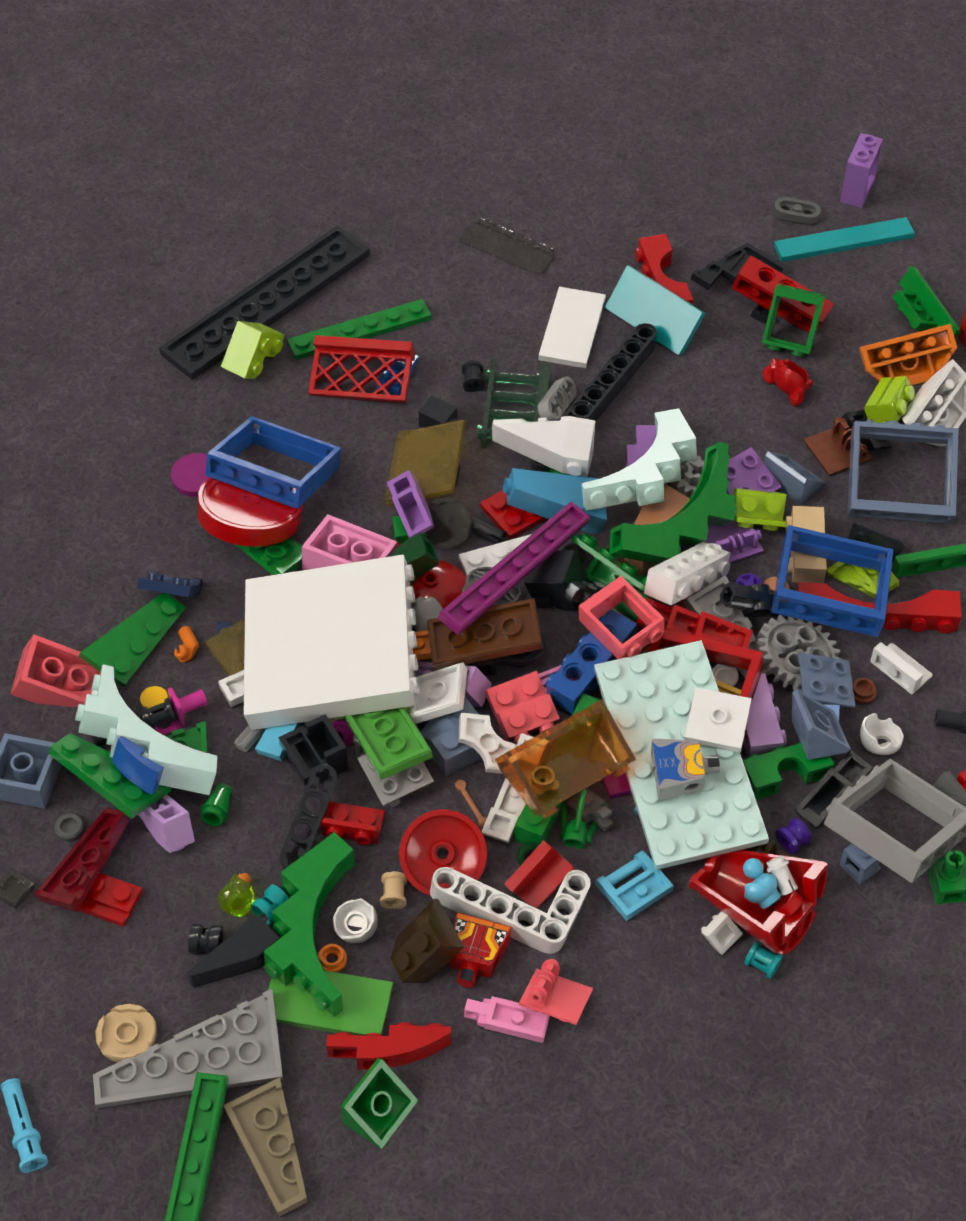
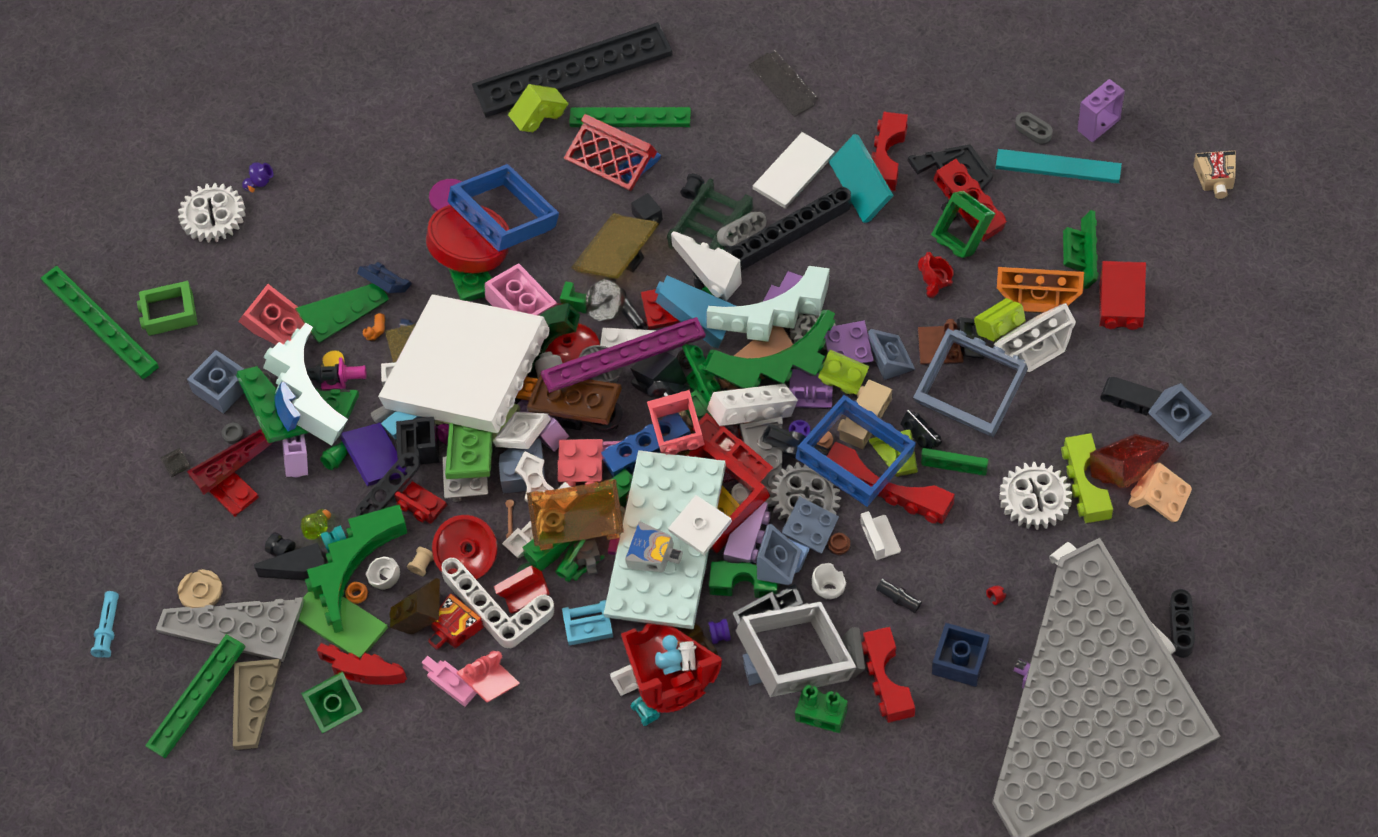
camera: 30 degrees right, 5 degrees up
(263, 787) = (371, 452): none -> dark purple tile
(410, 504) = (581, 276): medium lavender slope -> none

